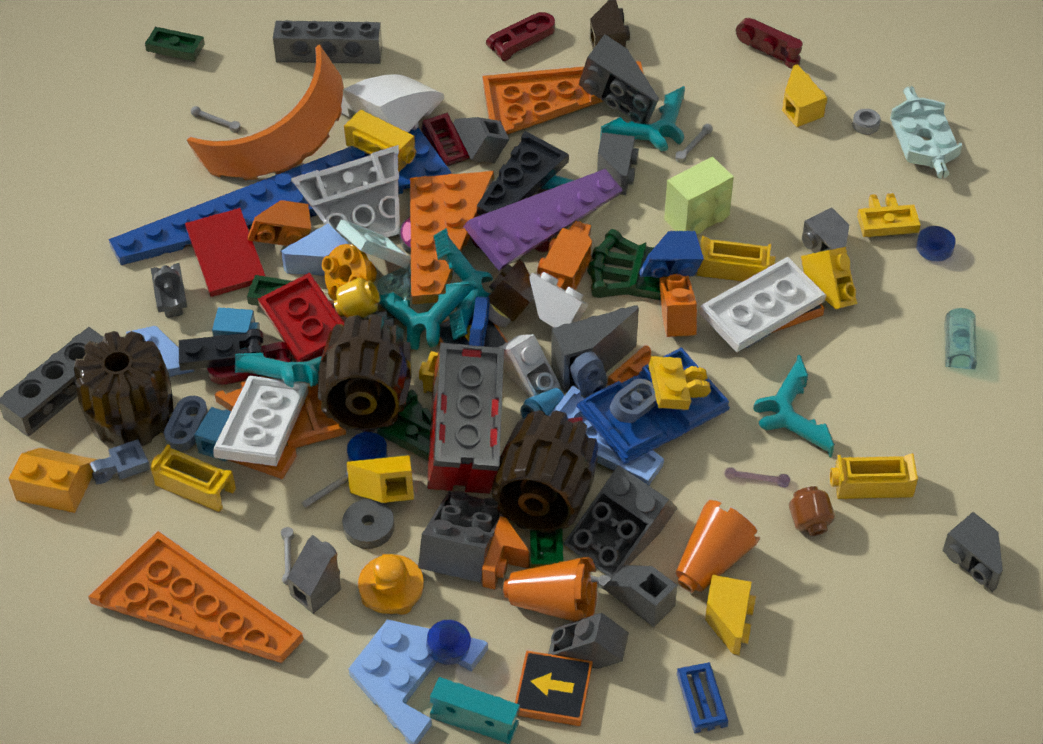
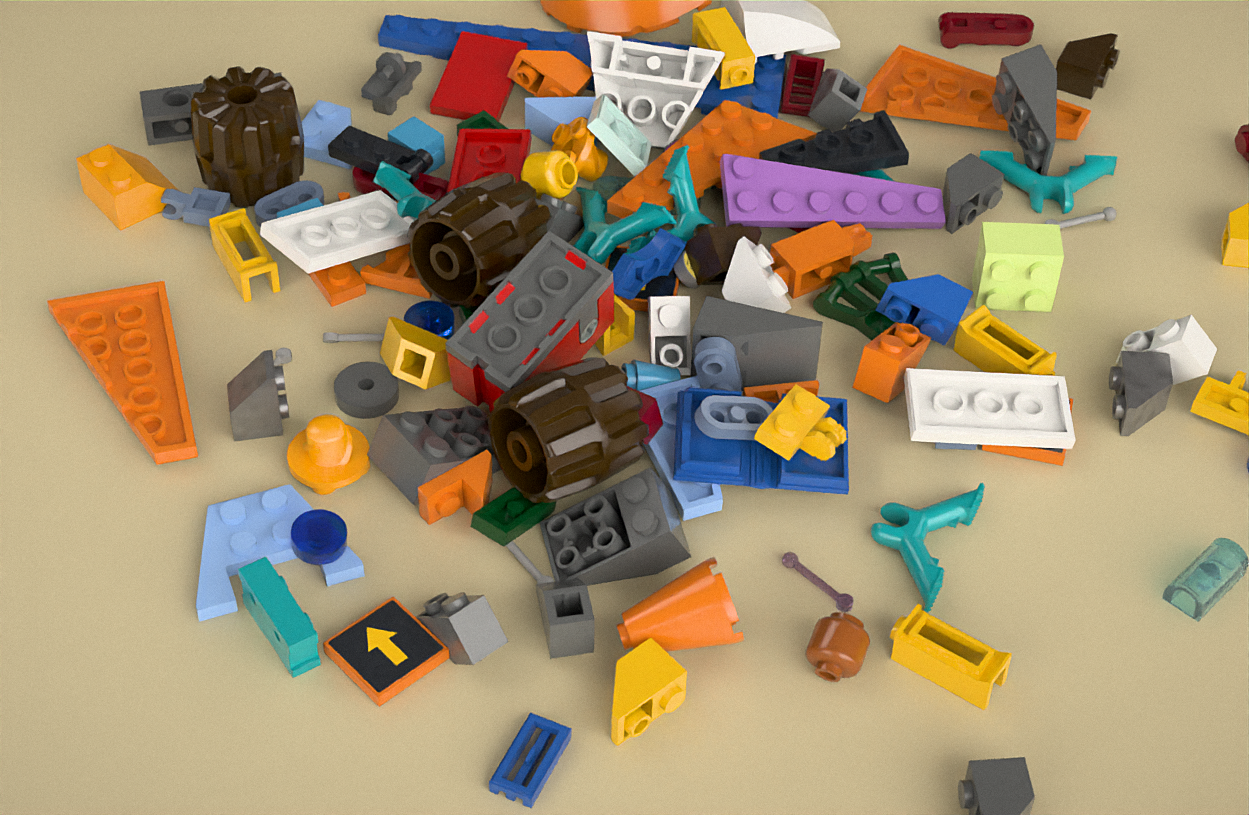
camera: 35 degrees right, 5 degrees down
(555, 589) = (480, 556): orange cone -> none
(822, 197) = (1183, 340): none -> white slope
(832, 275) = (1101, 424): yellow slope -> none

